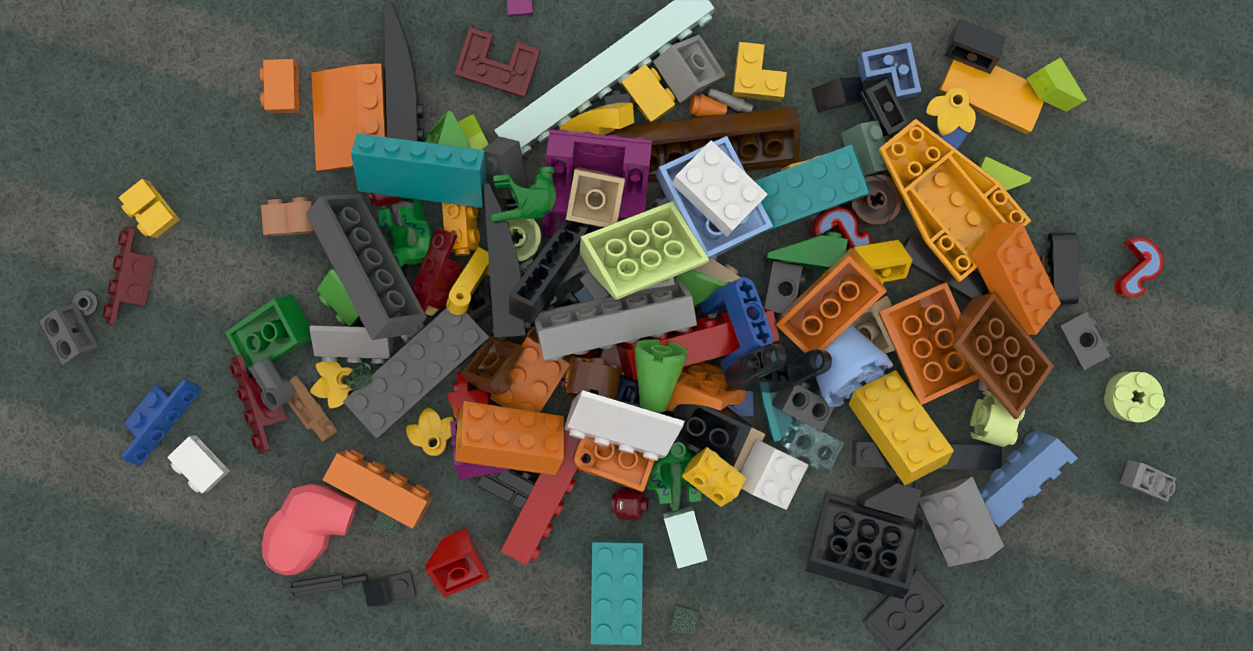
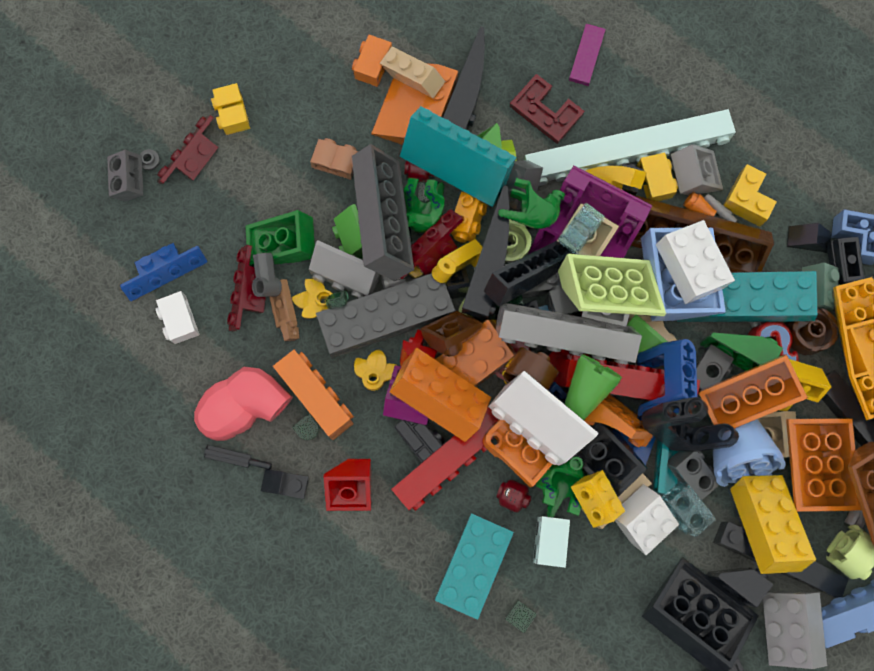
camera: 20 degrees right, 10 degrees down
(331, 88) = (412, 72): none -> tan brick
(585, 201) = (581, 229): none -> clear light blue brick

